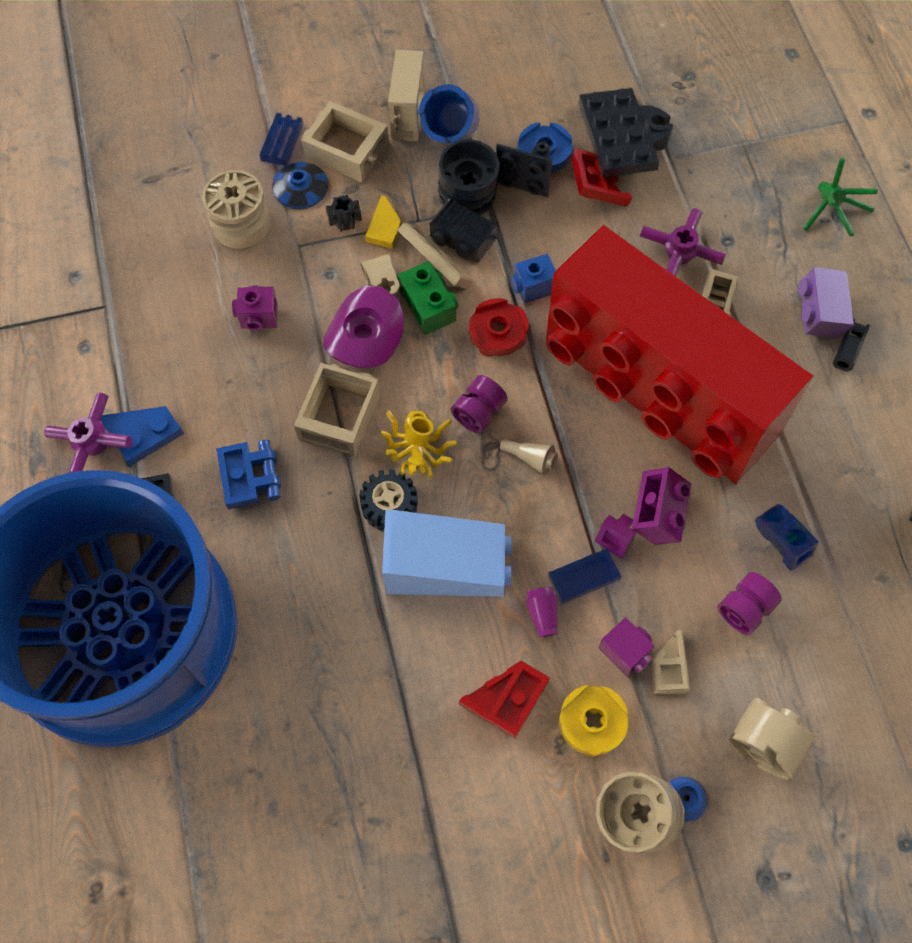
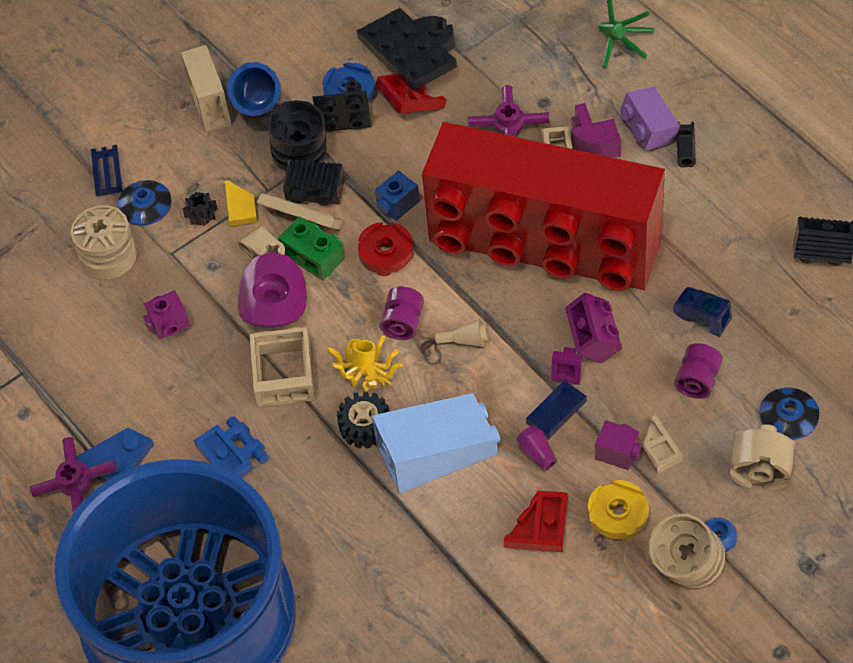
camera: 20 degrees left, 10 degrees down
(366, 156) = (168, 167): tan window -> none
(758, 302) = (595, 138): none -> magenta brick
(814, 702) = (791, 423): none -> dish

